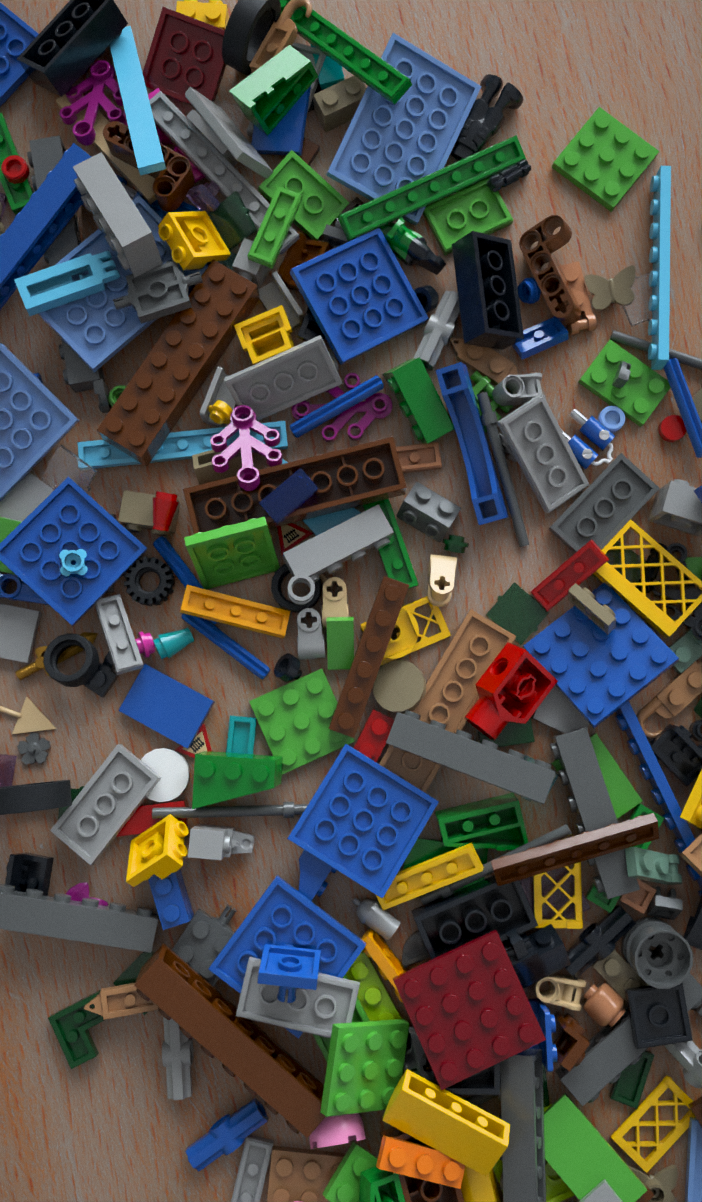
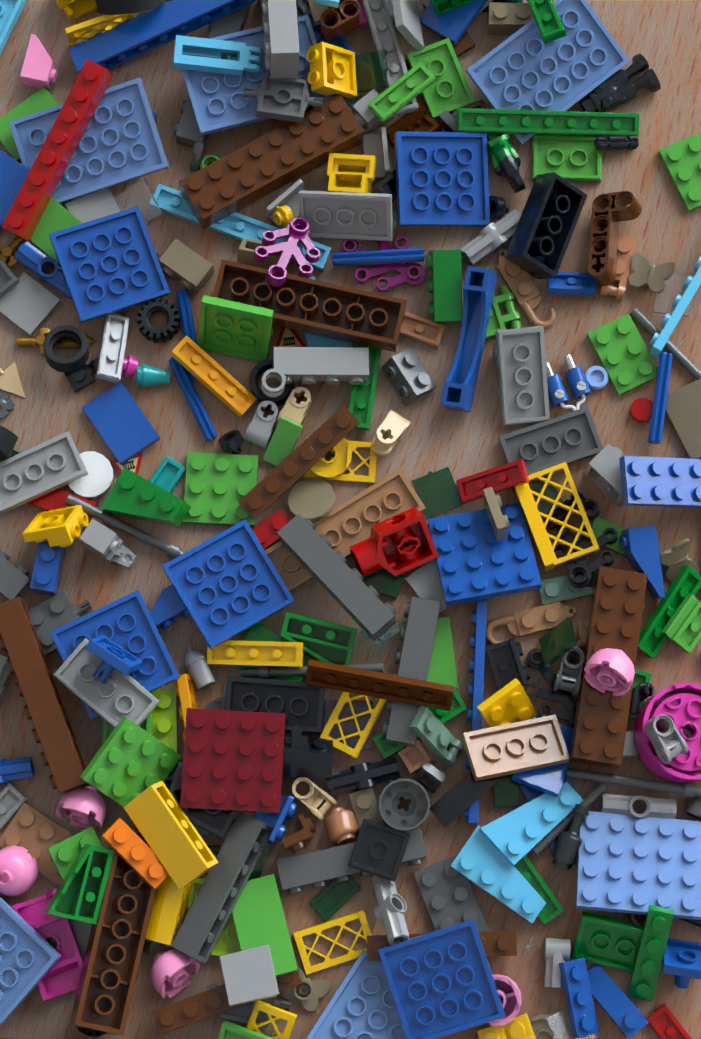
camera: 25 degrees right, 5 degrees down
(68, 556) = (105, 267): medium azure plate -> none
(164, 510) = (199, 268): red cone -> none
(203, 196) = (359, 40): clear purple tile -> none
(288, 496) = (300, 305): clear blue tile -> none
(455, 544) = (416, 412): dark green plate -> none
(489, 420) = (492, 325): dark grey bar -> none
(522, 389) = (534, 315): light grey piece -> none
(529, 291) = (581, 242): blue plate -> none
(622, 374) = (620, 344): tile -> none

